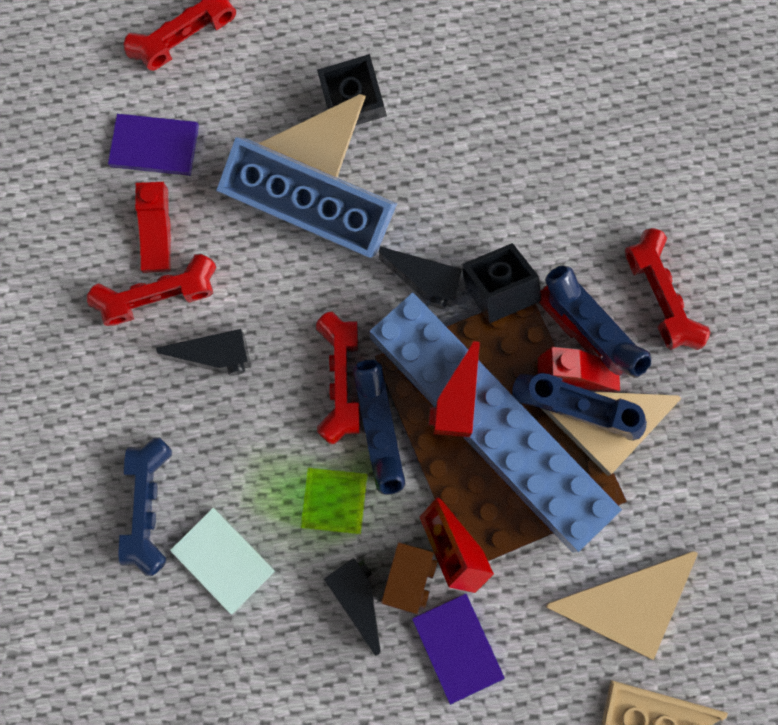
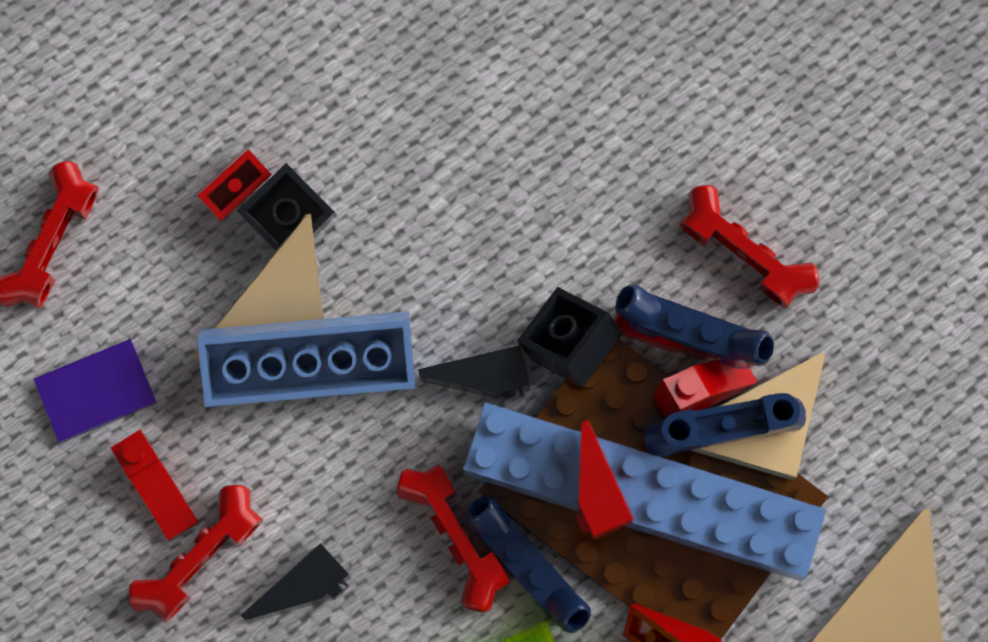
camera: 30 degrees left, 0 degrees up
(325, 52) = (233, 183): none -> red brick

